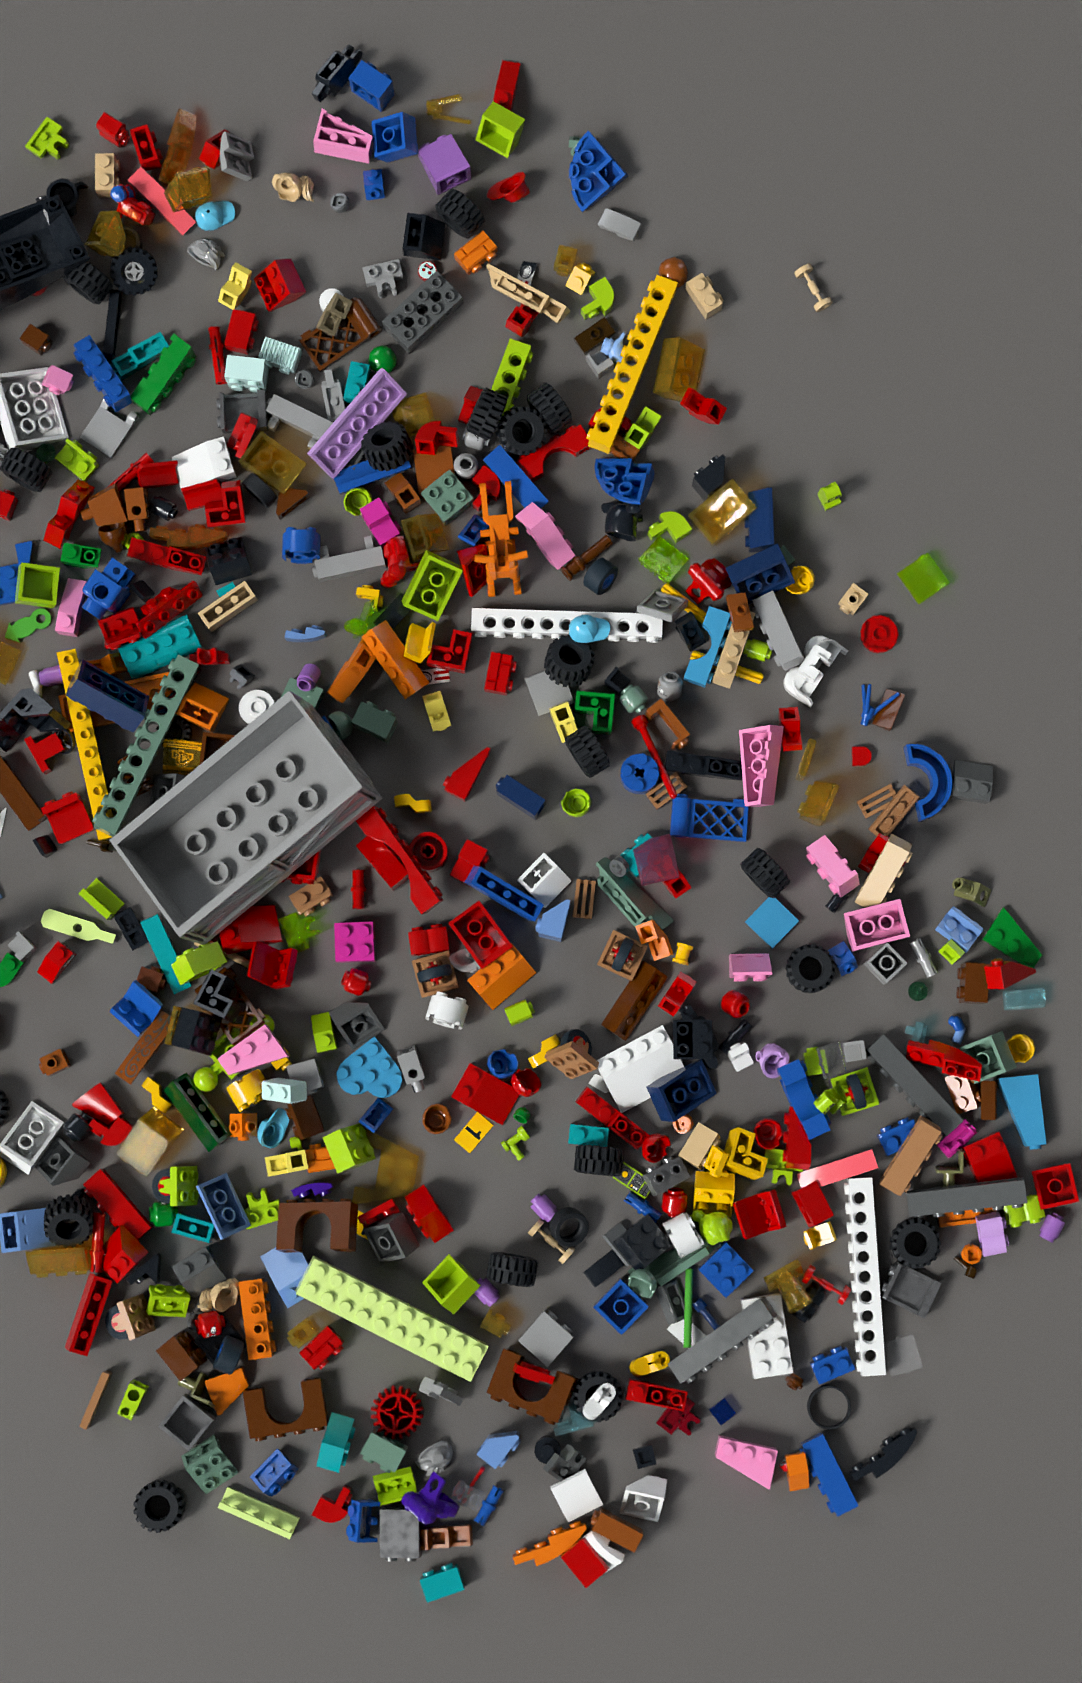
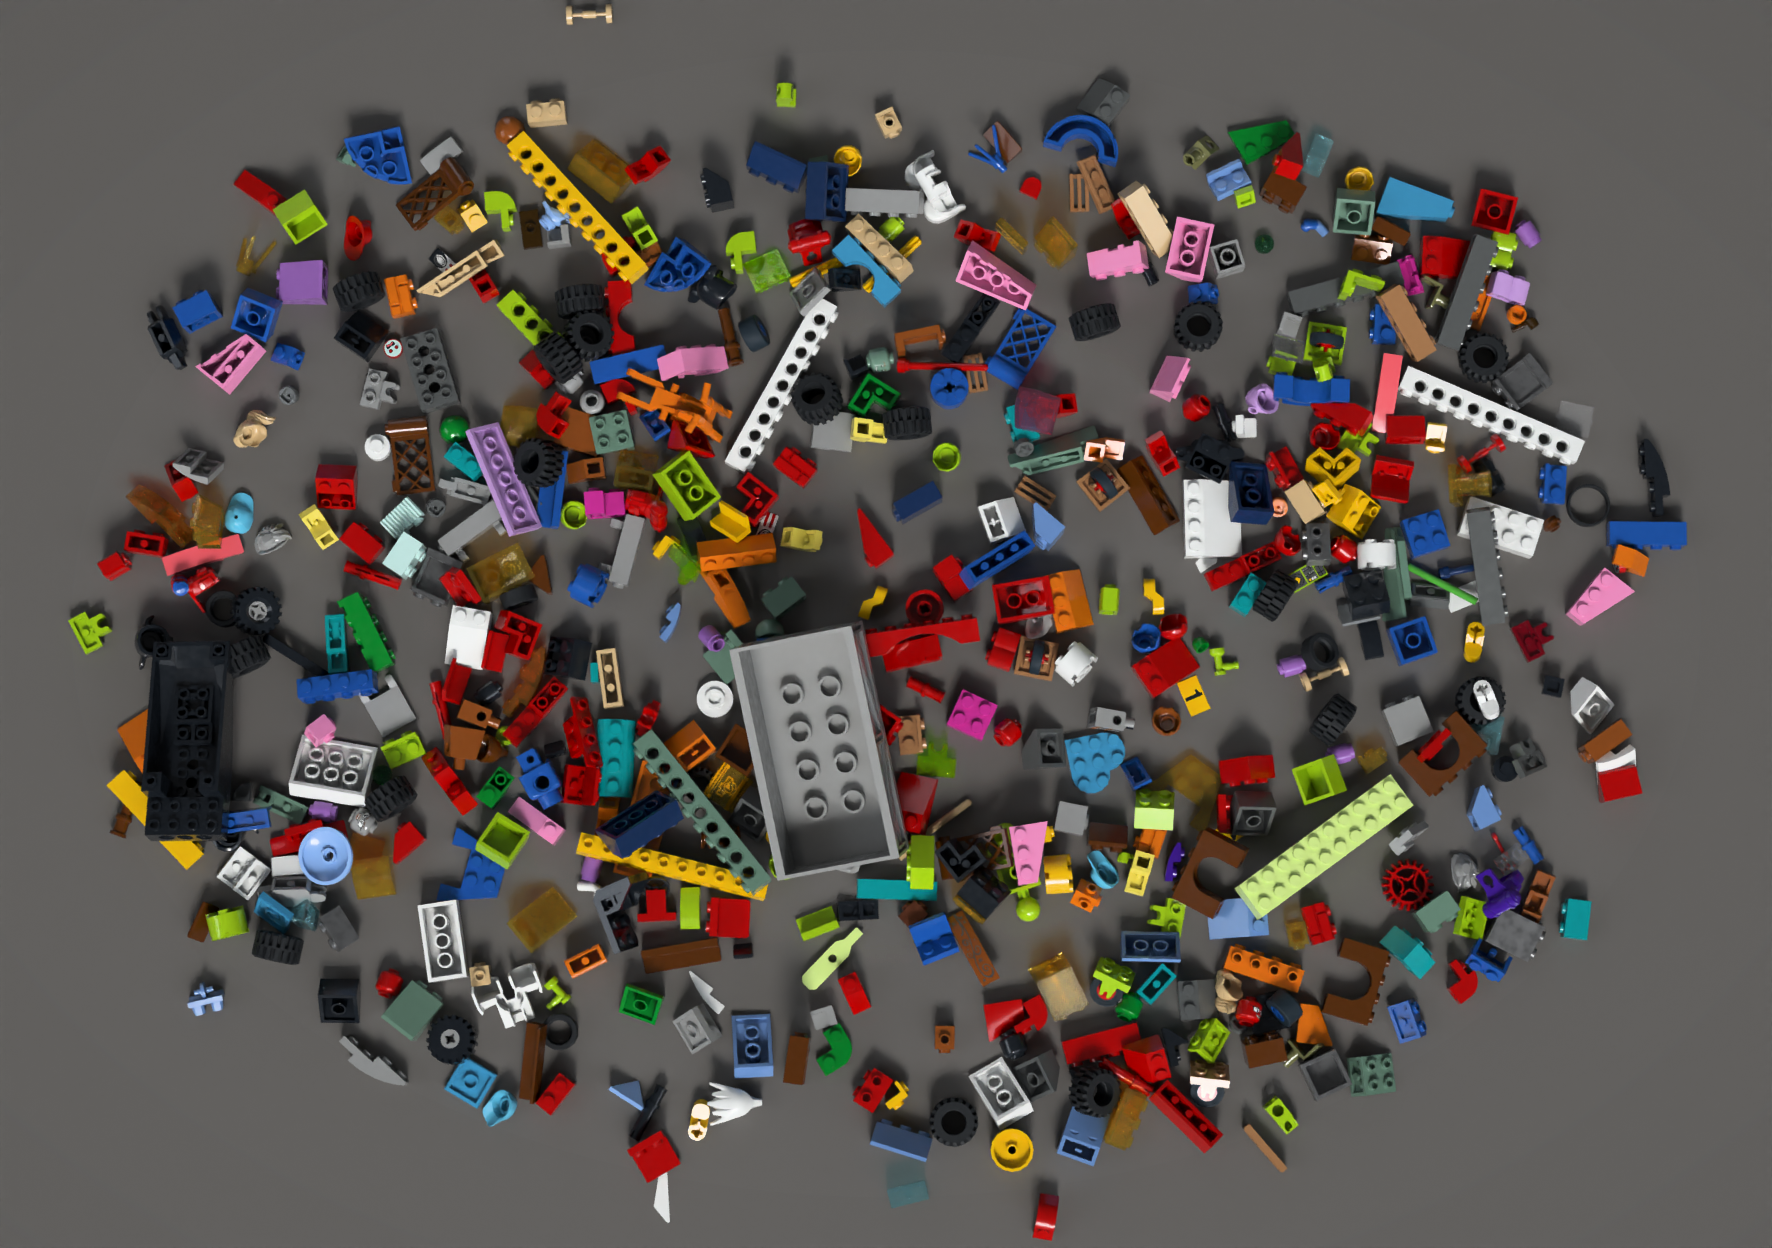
camera: 65 degrees left, 0 degrees up
(27, 626) = (532, 870): bright green brick -> none
(36, 340) = (272, 732): reddish brown brick -> none
(60, 779) = (690, 908): none -> lime slope
(102, 845) = (769, 899): dark brown hand -> none
(106, 174) = (157, 595): tan brick -> none
(107, 234) = (213, 616): clear yellow slope -> none
(144, 1514) = (1369, 1136): black tyre -> none
(156, 1092) = (1013, 959): yellow piece -> none
(197, 1112) = (1054, 930): dark green brick -> none
(242, 675) = (678, 697): black tile -> none
(259, 1512) = (1435, 1051): yellowish green fence -> none
(272, 965) = (957, 797): red bracket -> none
(284, 1090) = (1075, 840): light aqua brick -> none
(323, 1032) = (1038, 783): lime slope -> none
(333, 313) = (389, 447): dark tan slope -> none
(559, 1542) = (1591, 799): orange slope -> none
(573, 1055) = (1171, 570): medium nougat plate -> none
(576, 1495) = (1557, 763): white slope -> none
(594, 629) = (802, 360): medium azure cap -> none
(602, 245) = (457, 182): none -> reddish brown piece
(643, 1283) = (1402, 610): sand green hair -> none
(656, 1394) = (1504, 649): red slope -> none
(670, 686) = (884, 322): light grey head -> none
(682, 953) = (1128, 431): yellow bush -> none
(713, 1226) = (1382, 524): lime hair -> none
(721, 1111) = (1284, 468): none -> red bracket
(722, 512) = (752, 197): clear yellow slope -> none
(722, 1411) = (1546, 600): clear blue tile -> none
(739, 612) = (852, 226): dark orange plate -> none
(771, 921) = (1138, 339): dark azure tile -> none
(879, 634) = (930, 116): red tile -> none
(918, 1032) = (1300, 262): clear light blue tile -> none
(923, 578) = (900, 52): clear neon green hinge -> none
(923, 957) = (1237, 223): light grey pin -> none
(927, 1091) = (1355, 278): none -> lime bracket
(949, 1058) = (1335, 247): red slope -> none

